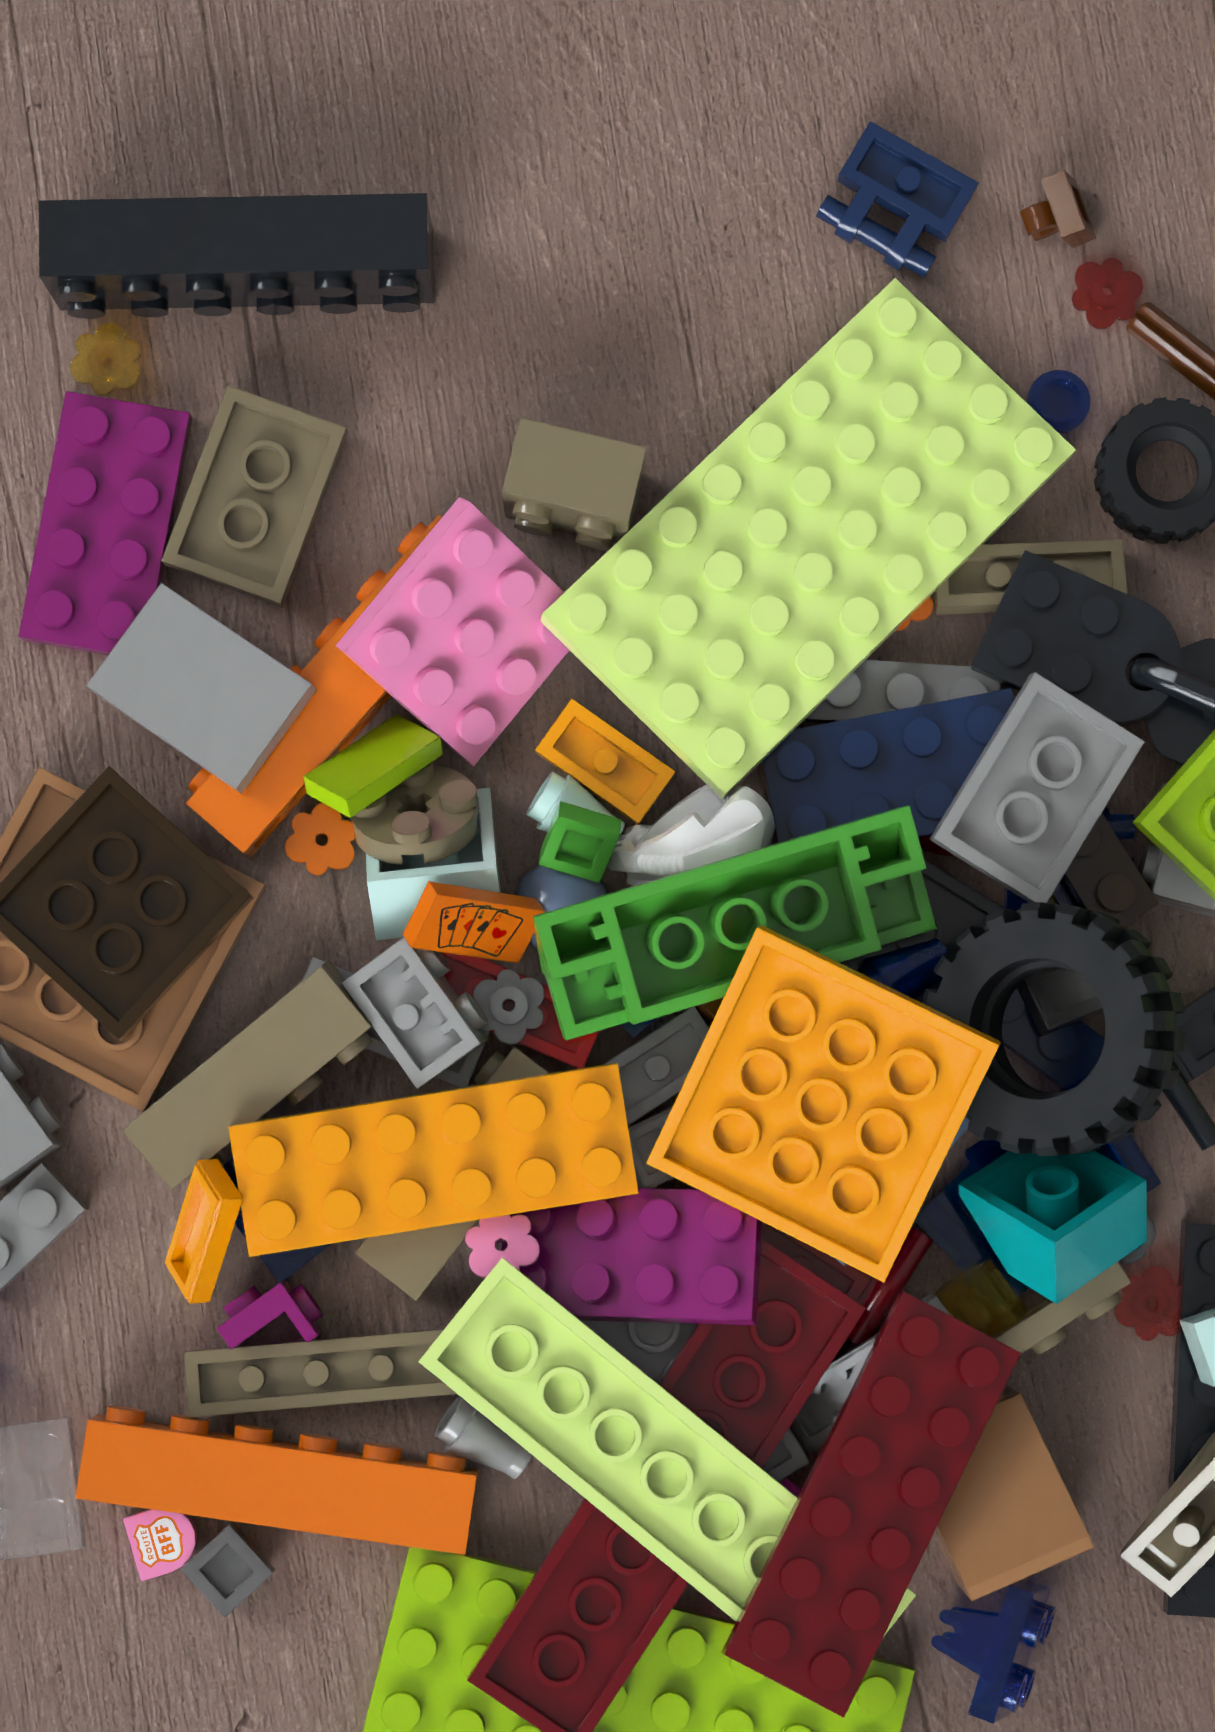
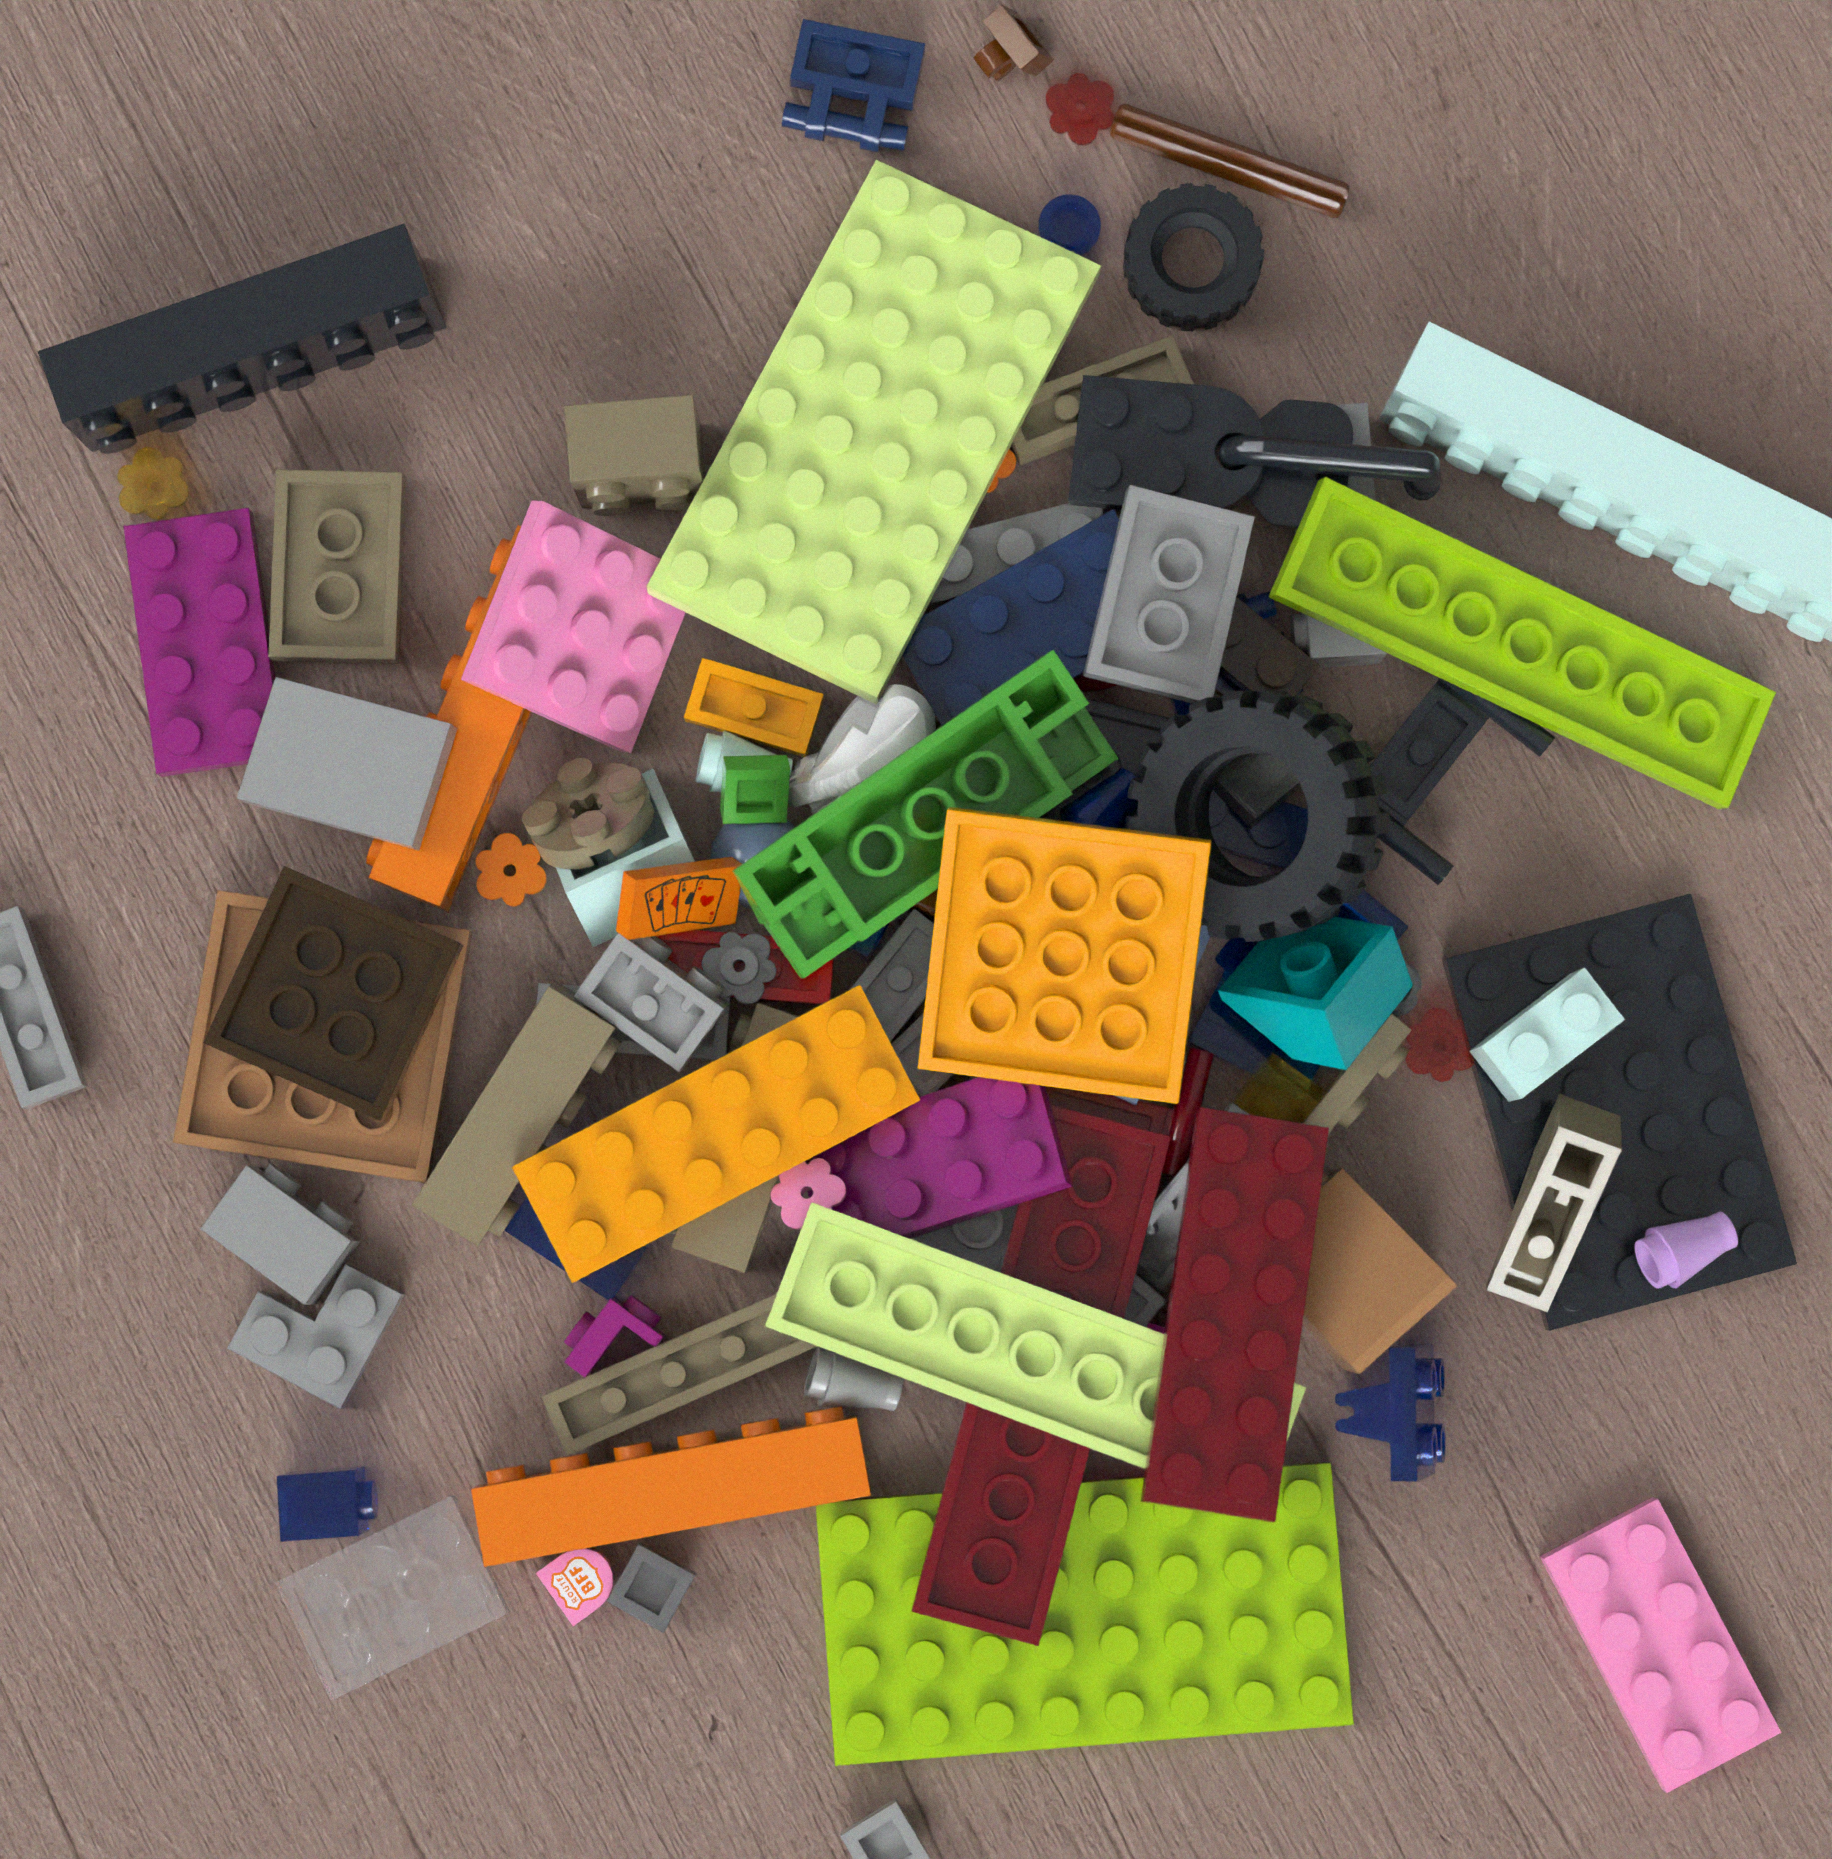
camera: 15 degrees left, 0 degrees up
(203, 1230) = (521, 1274): light orange tile -> none
(373, 765) = (535, 782): lime tile -> none

